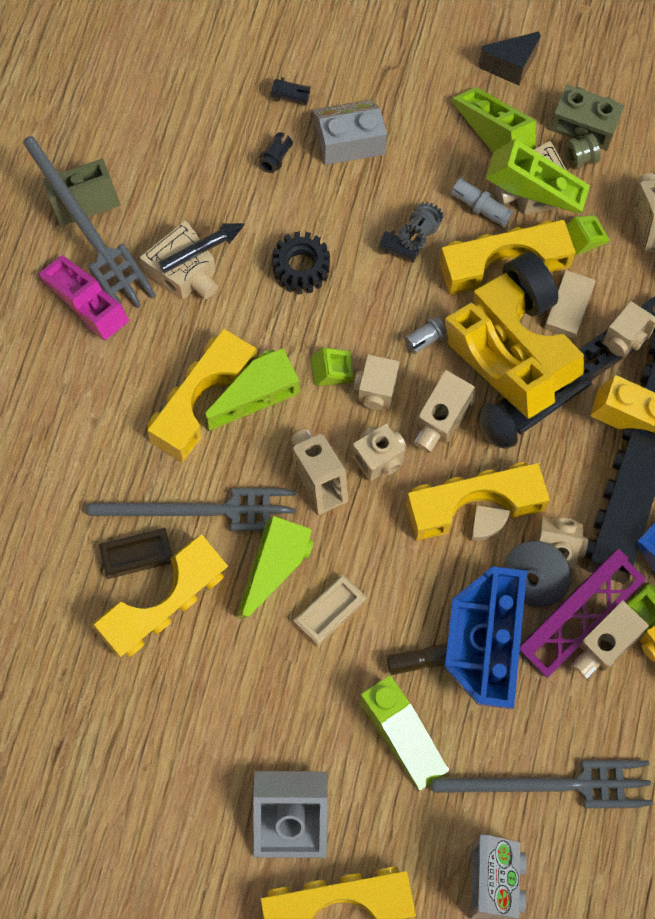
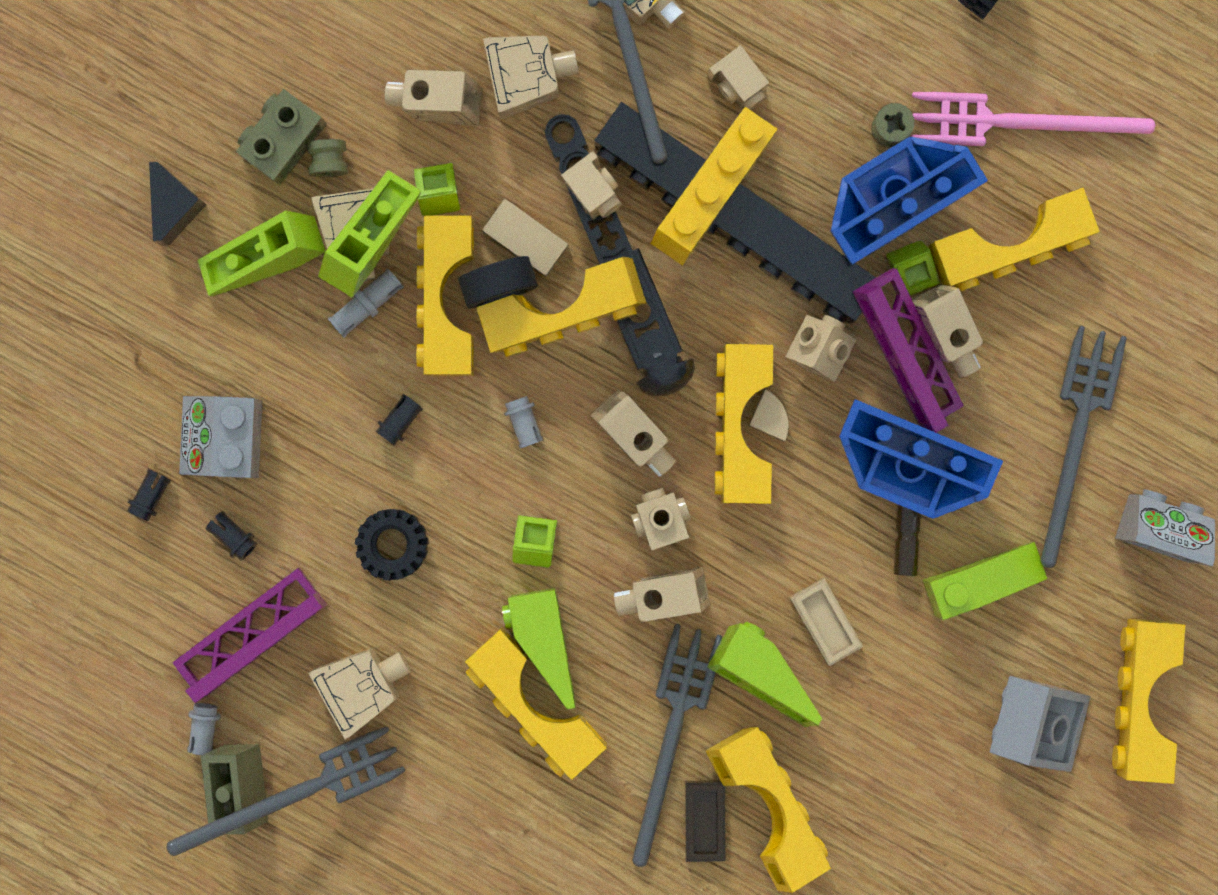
camera: 75 degrees left, 20 degrees up
(85, 297) = (373, 815): dark pink slope -> none
(124, 165) = (202, 728): none -> light grey pin
(199, 188) = (250, 650): none -> magenta fence
(226, 233) = (341, 628): black piece -> none
(377, 382) = (573, 497): tan brick -> none
(424, 222) = (383, 387): dark grey connector -> none
(523, 384) = (593, 354): yellow arch -> none
(549, 567) = (850, 376): dark grey dish -> none

